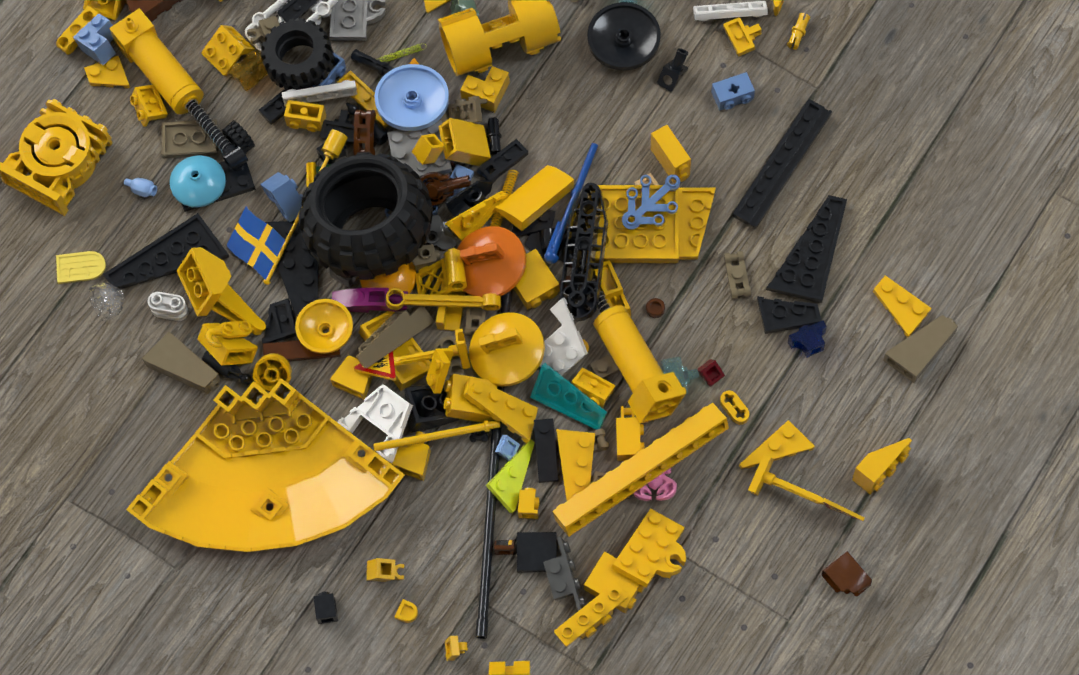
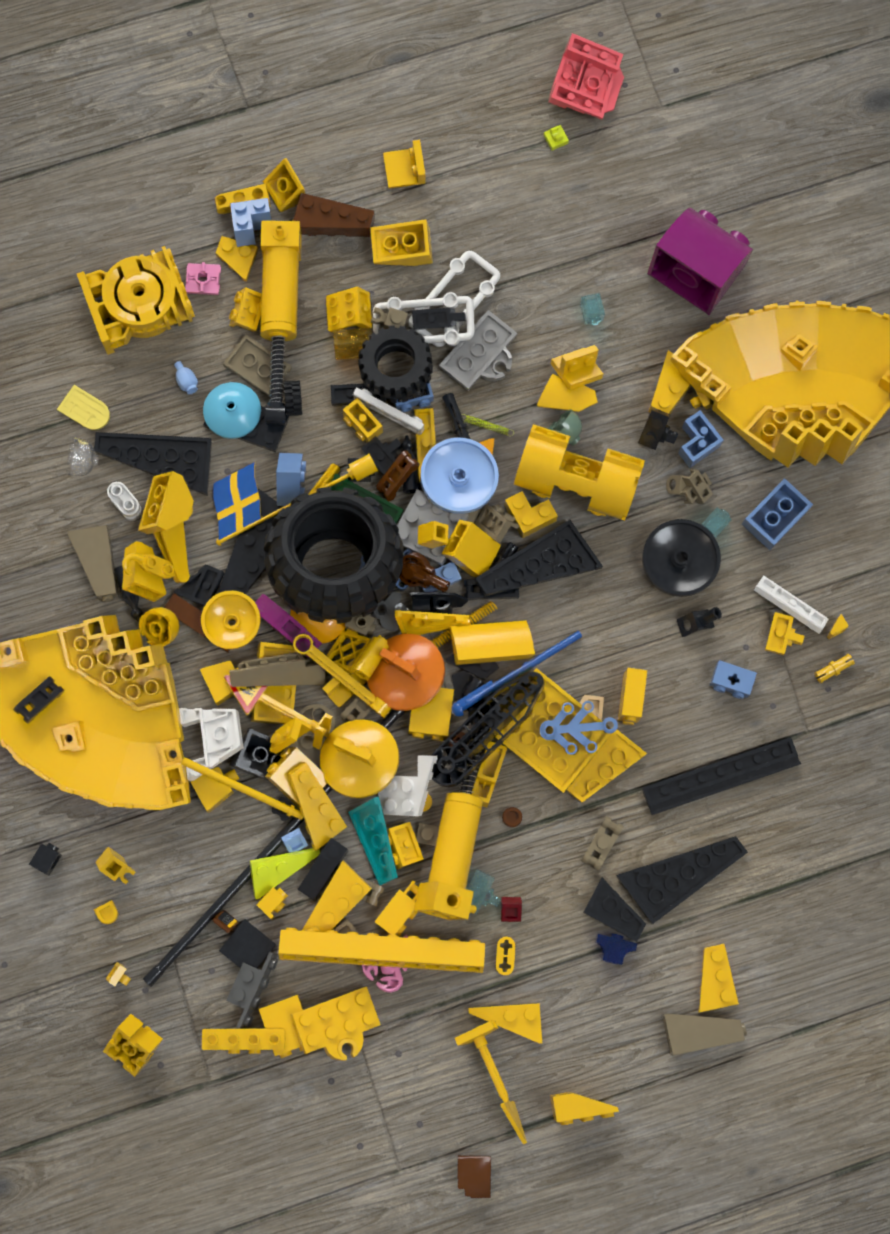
camera: 30 degrees right, 10 degrees up
(99, 99) = (209, 287): none -> bright pink piece
(222, 494) = (38, 699): none -> black plate
(525, 110) = (549, 558): none -> black wing

